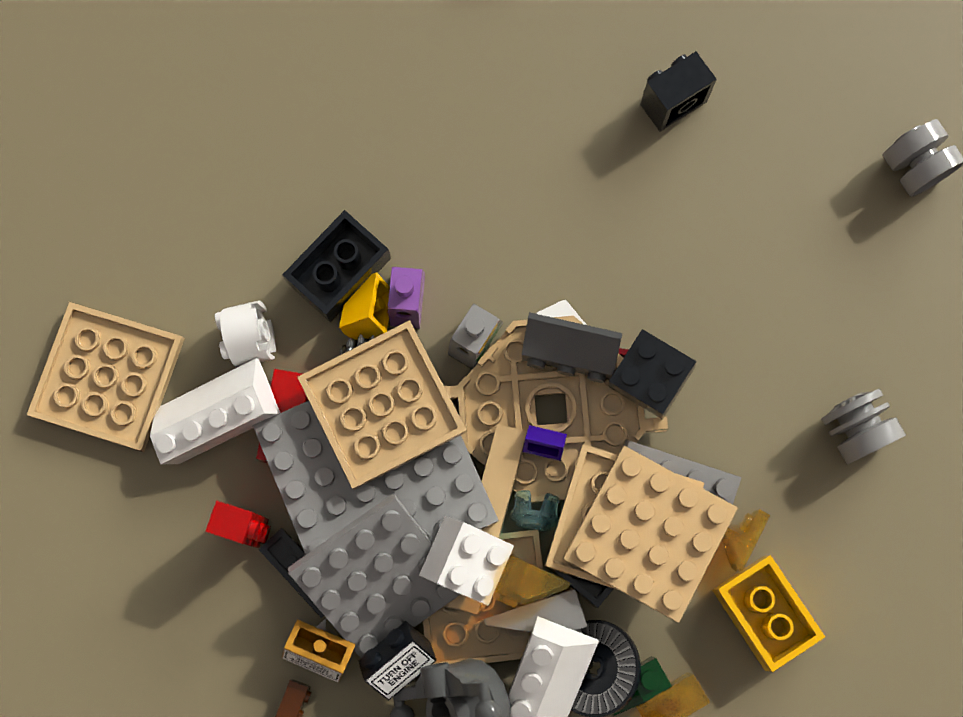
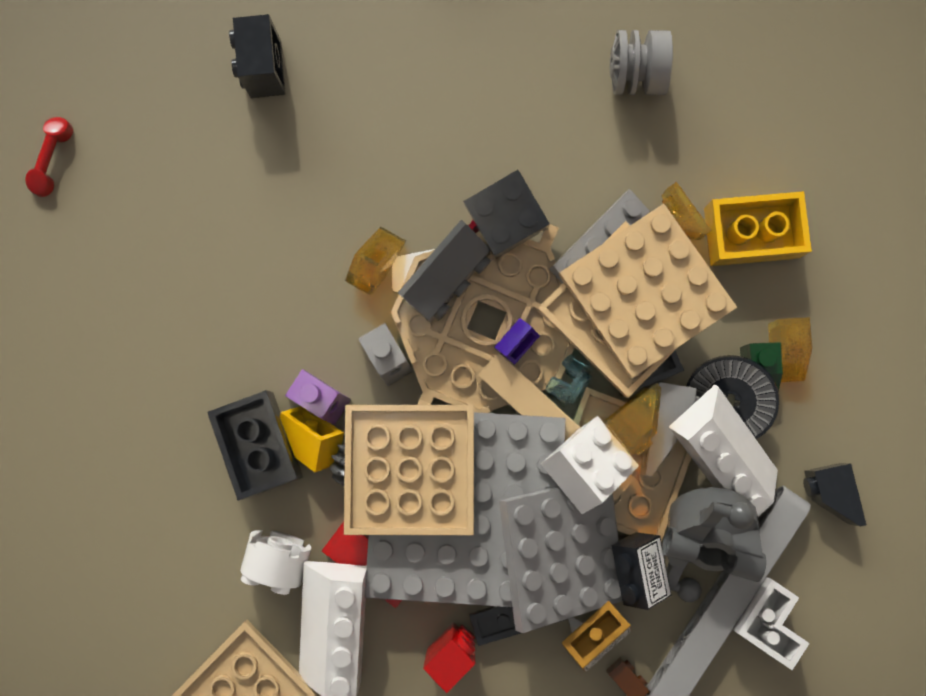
camera: 60 degrees left, 5 degrees up
(552, 284) = (374, 260): none -> clear yellow slope

